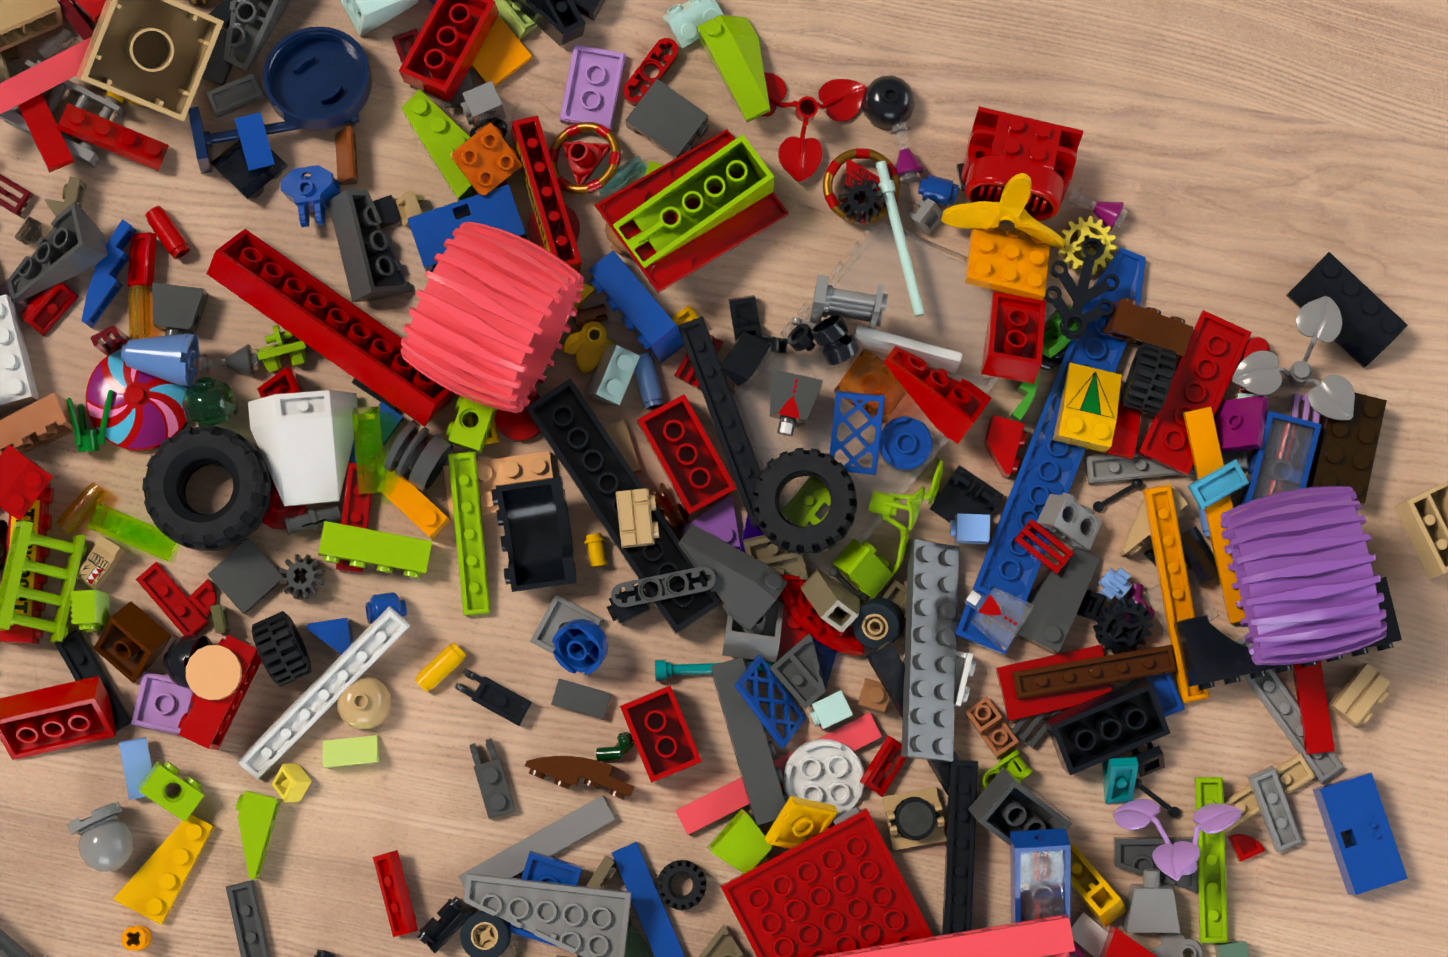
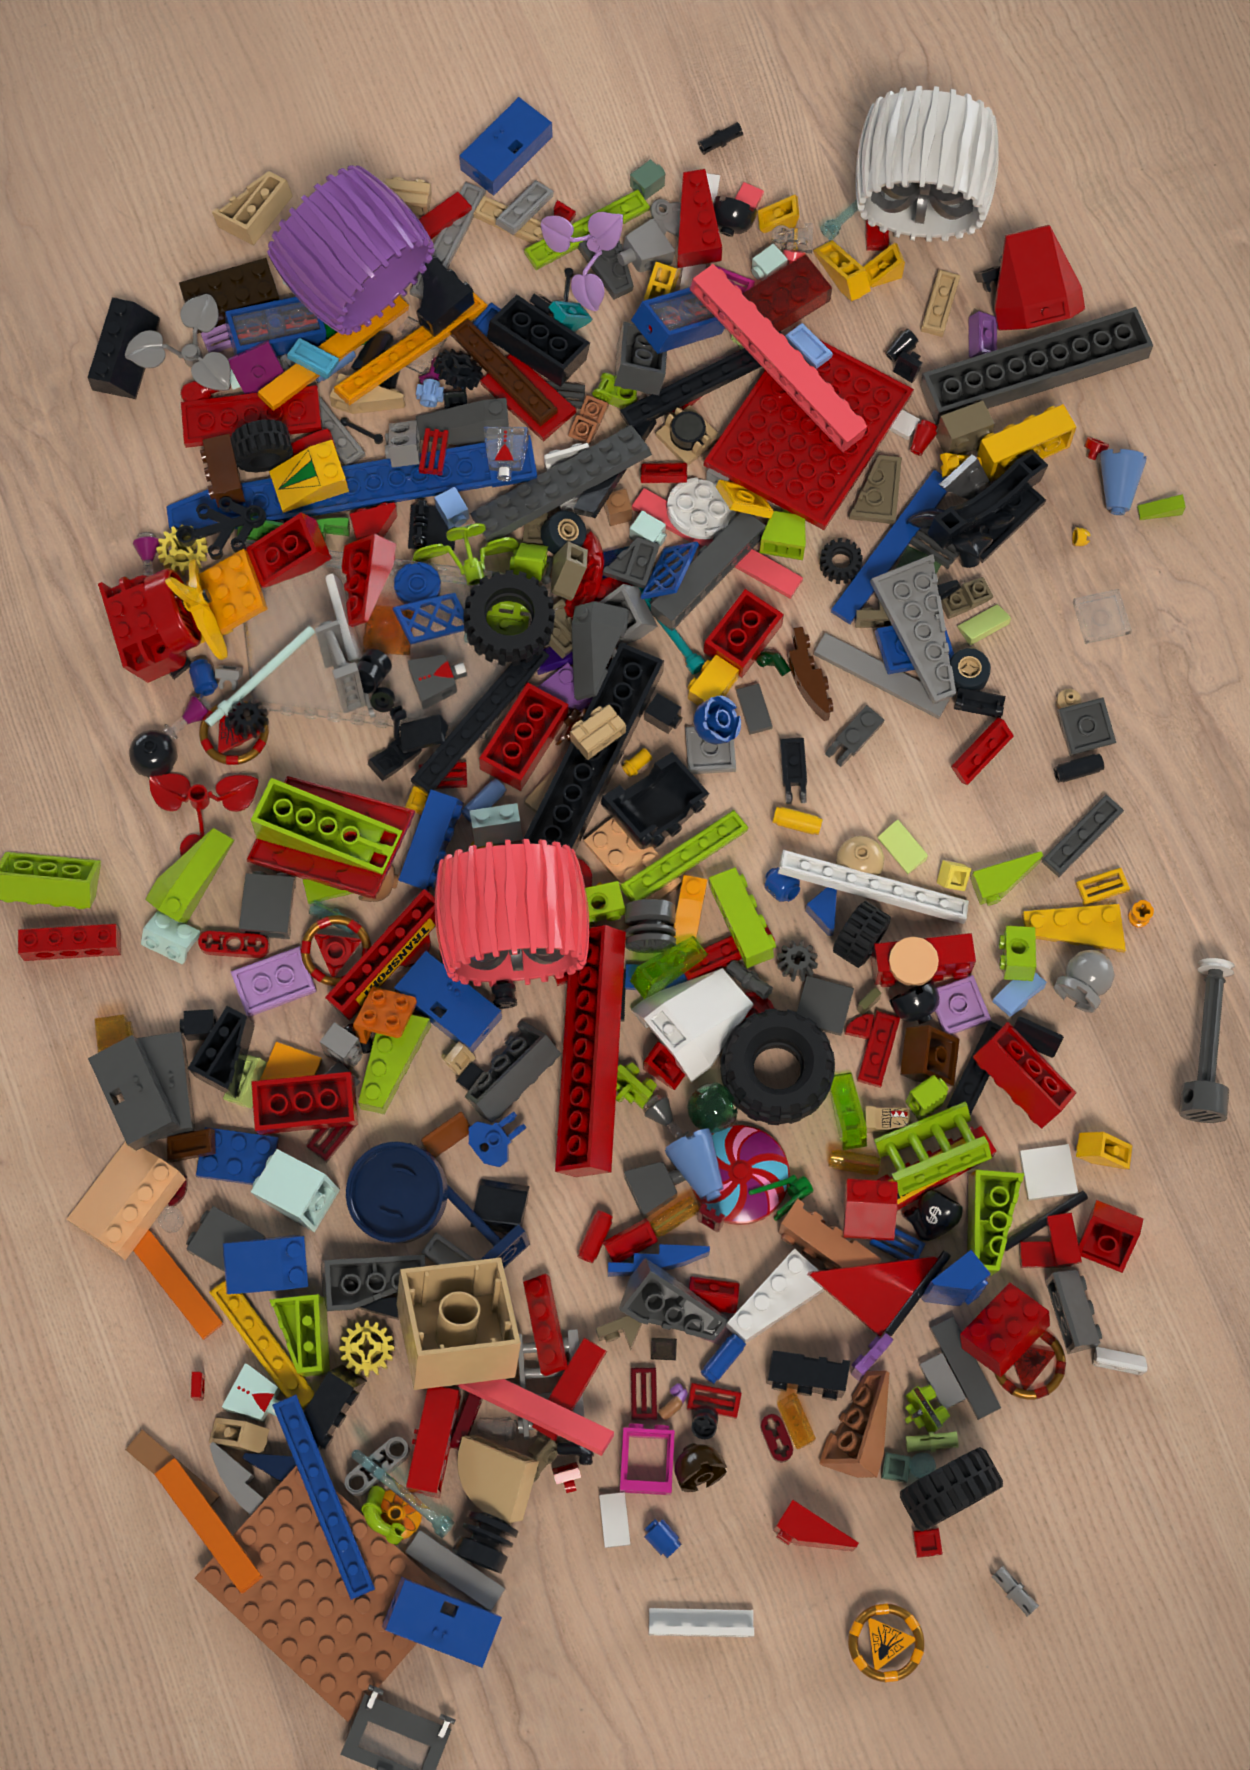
camera: 120 degrees left, 10 degrees down
(85, 757) = (1039, 1037): none -> black slope
(200, 923) = (1089, 900): none -> yellow tile
(254, 141) = (480, 1206): blue tile -> none
(629, 673) = (715, 680): none -> yellow brick
(664, 587) = (632, 686): dark grey beam -> none

